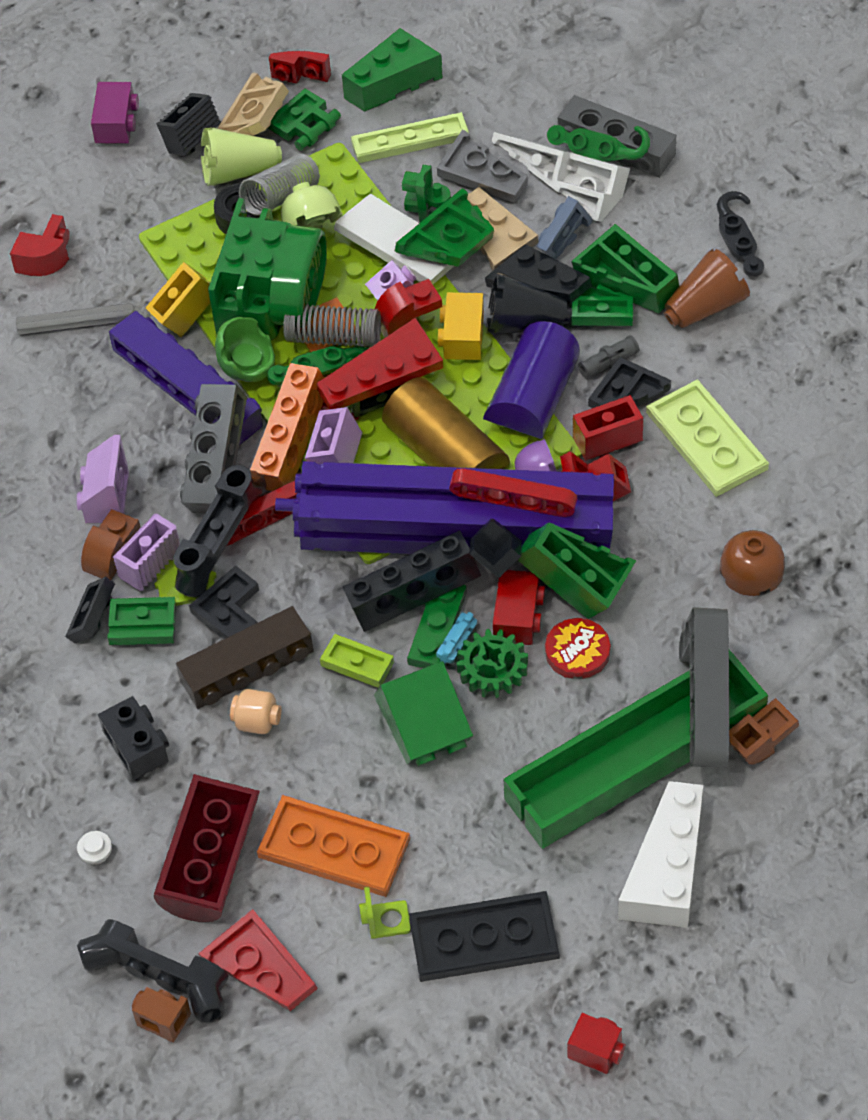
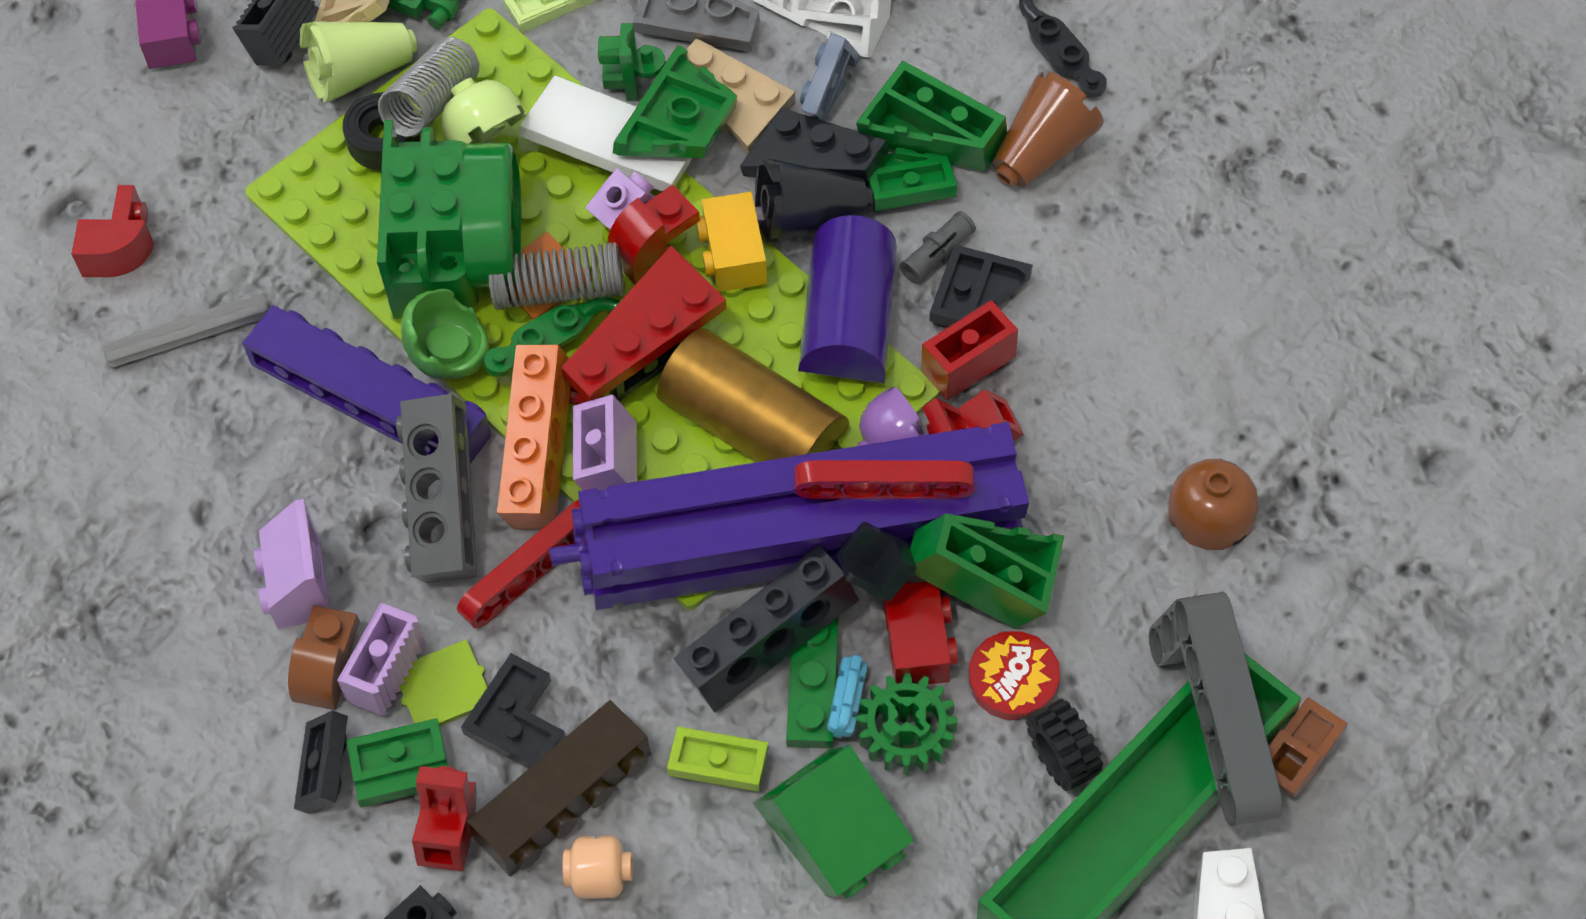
camera: 15 degrees left, 5 degrees up
(157, 668) = (442, 827): none -> red brick
(181, 300) = (334, 277): yellow brick -> none
(198, 556) = (461, 648): black plate -> none
(594, 694) = (1064, 744): none -> black tyre
(707, 438) = (1100, 336): yellowish green tile -> none

